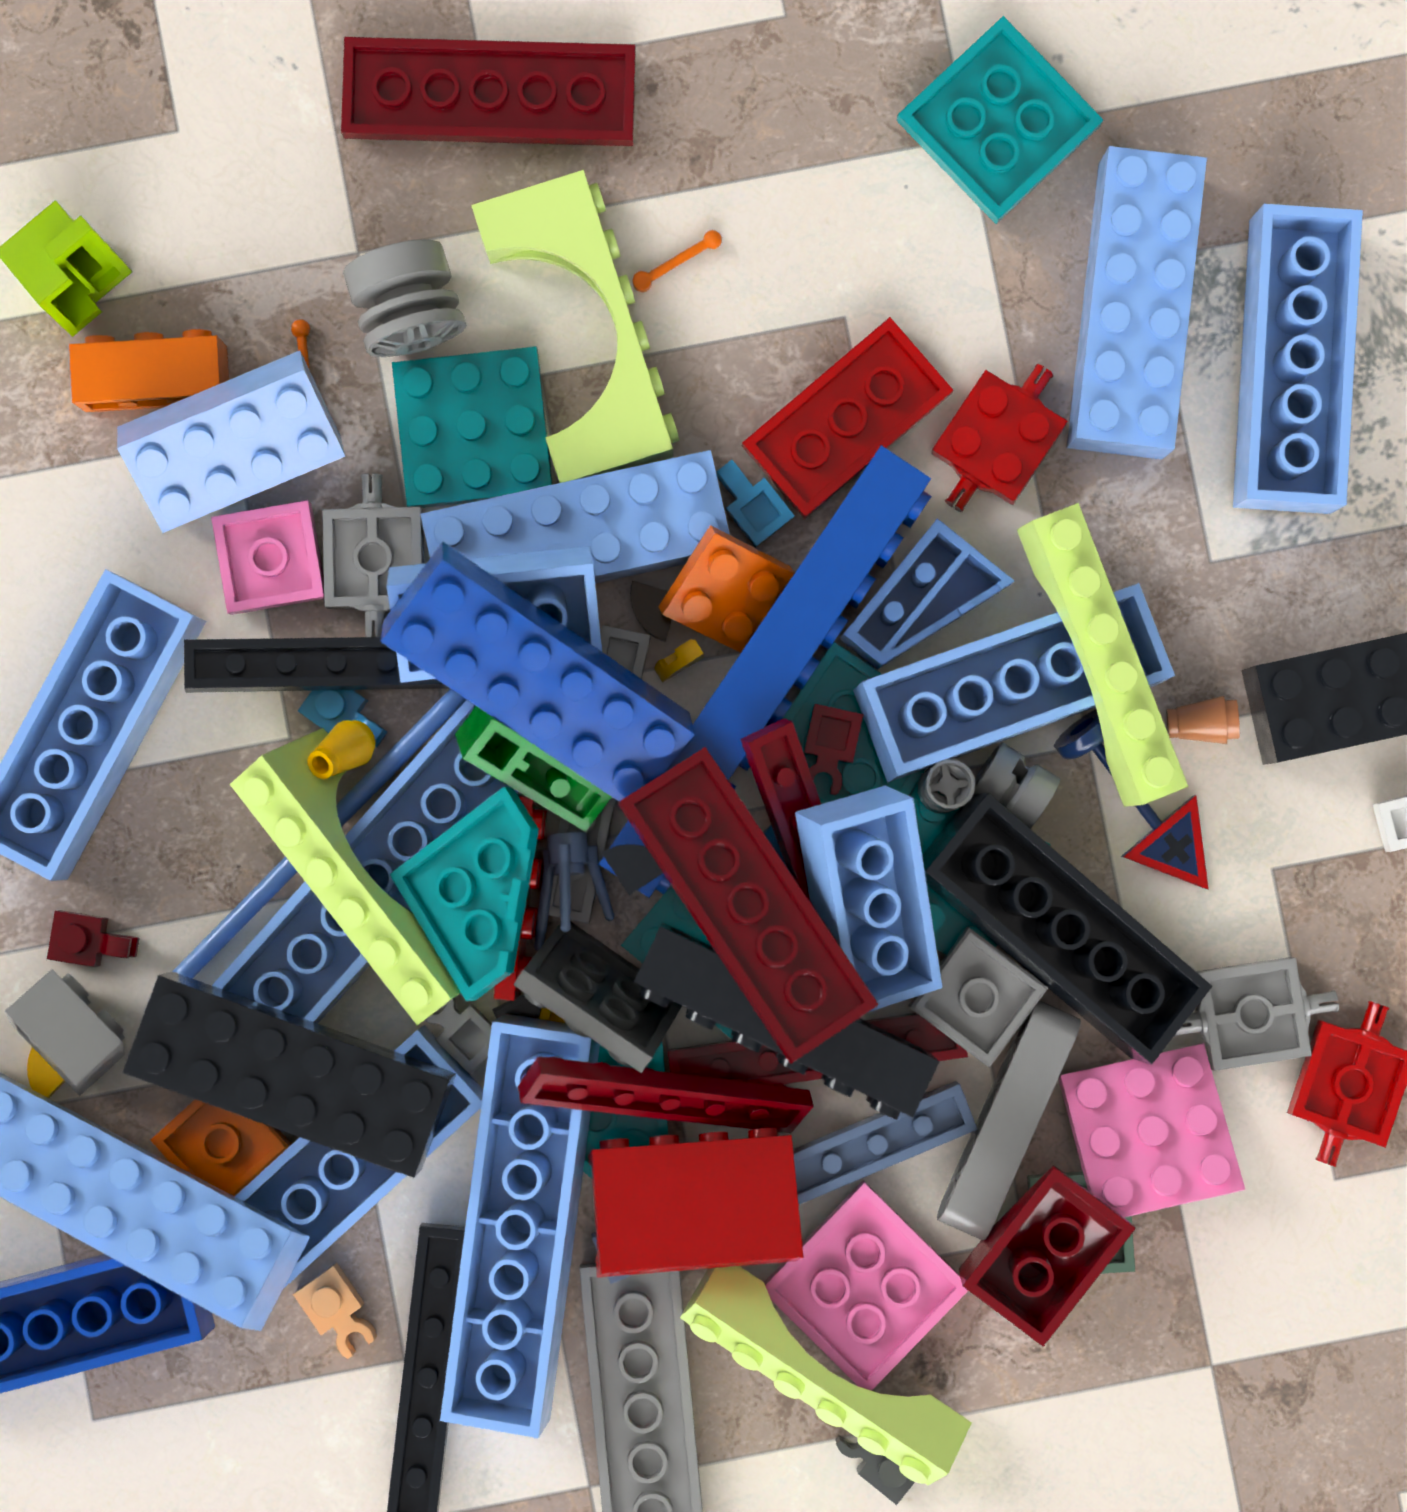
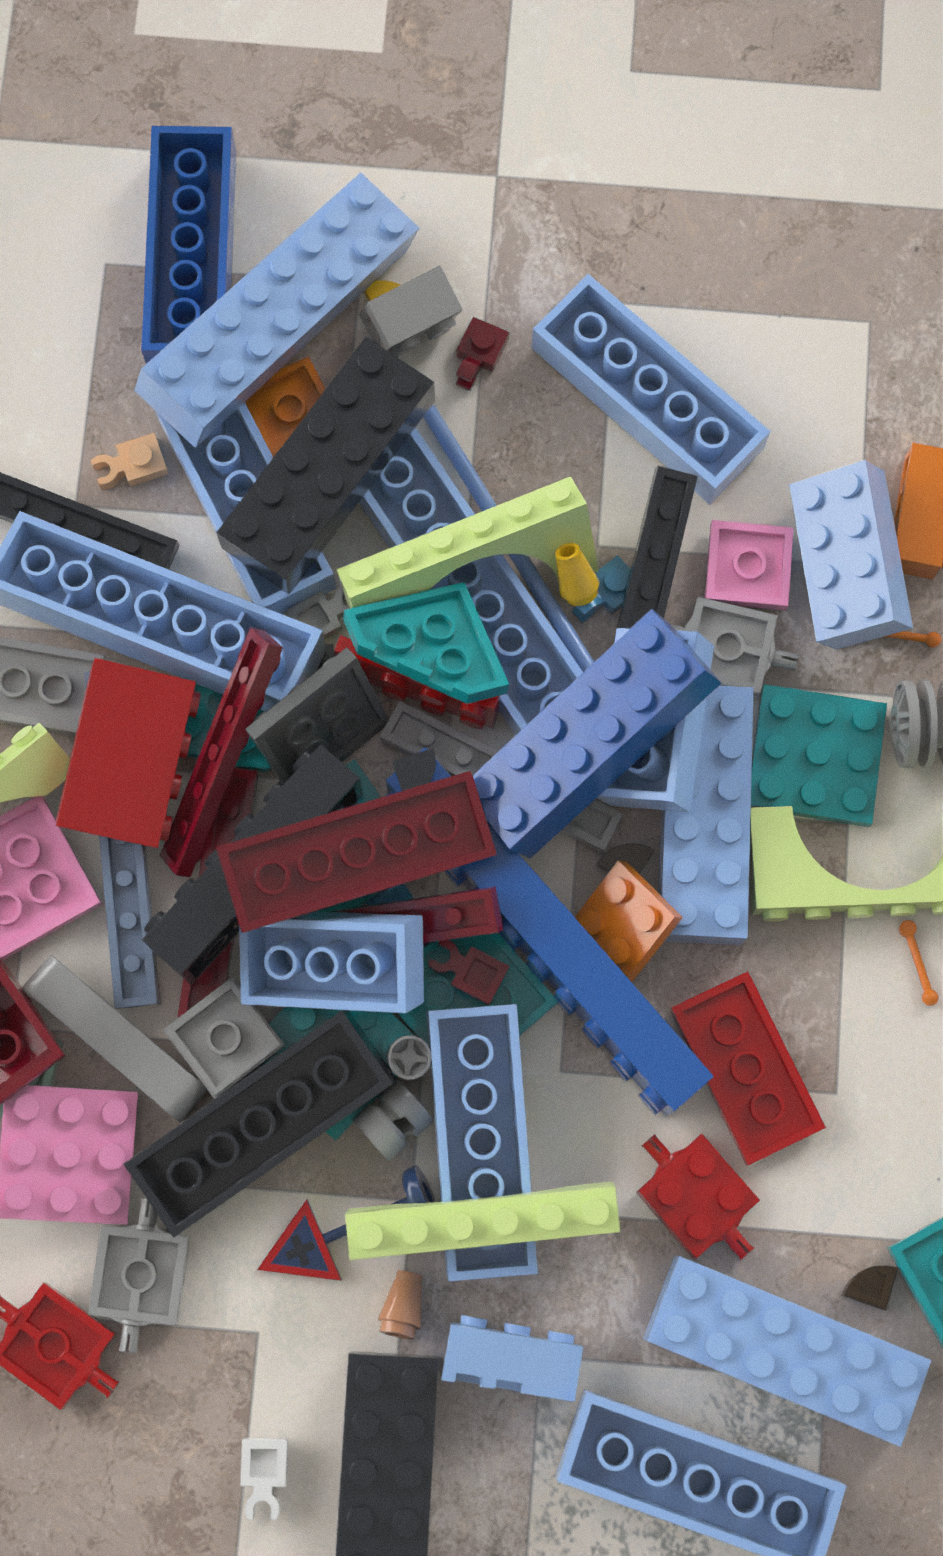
camera: 105 degrees right, 10 degrees down
(529, 769) = (515, 709): green slope -> none
(564, 858) = (438, 730): sand blue plant -> none
(682, 658) = (577, 871): yellow tile -> none
(756, 508) = (689, 969): dark azure plate -> none
(924, 594) = (576, 1085): medium blue wedge -> none
(1040, 230) = (872, 1286): none -> dark brown tile
(1229, 589) = (512, 1359): none -> light blue wedge

